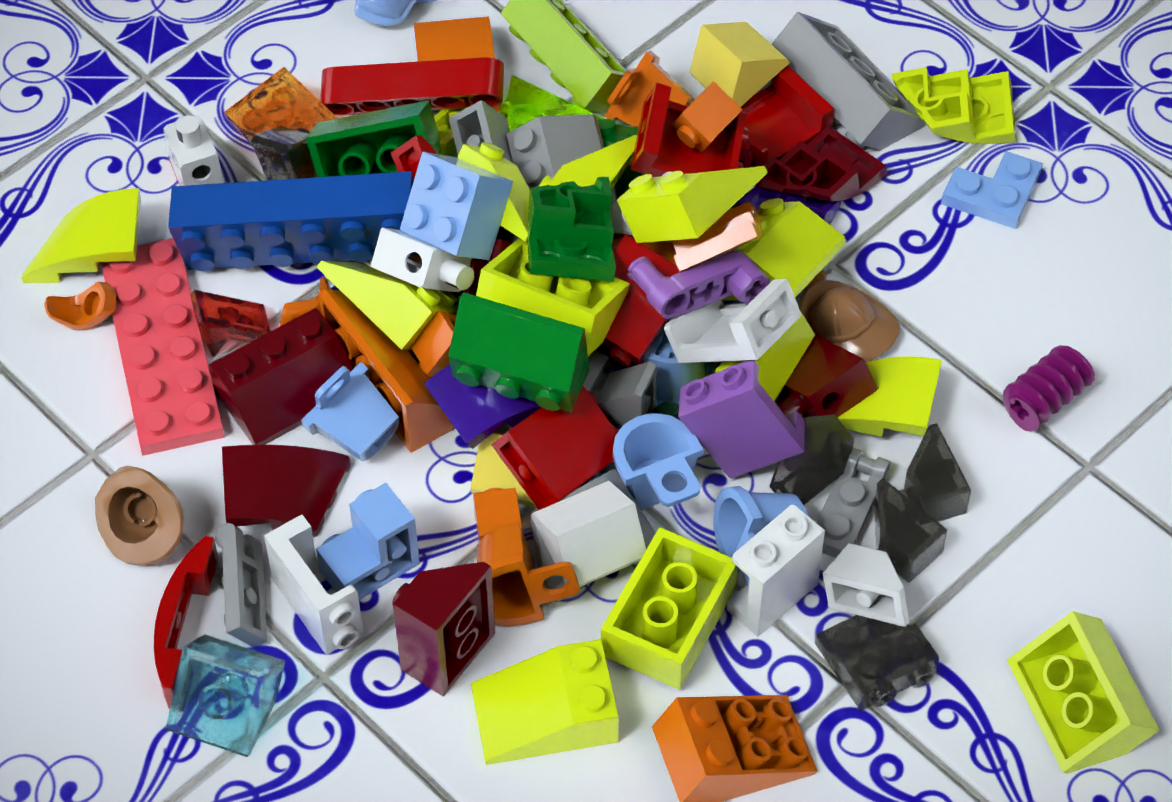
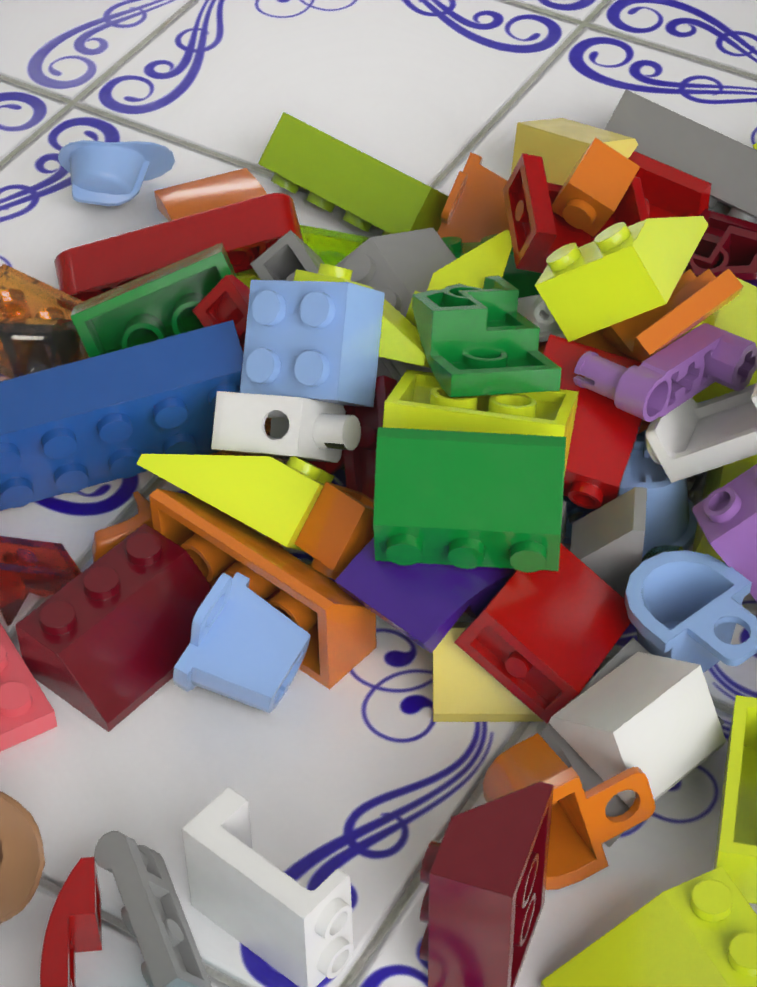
camera: 15 degrees left, 10 degrees down
(280, 484) = (161, 764): dark red slope -> none
(375, 548) = (340, 809): light blue brick -> none
(495, 509) = (483, 733): orange brick -> none

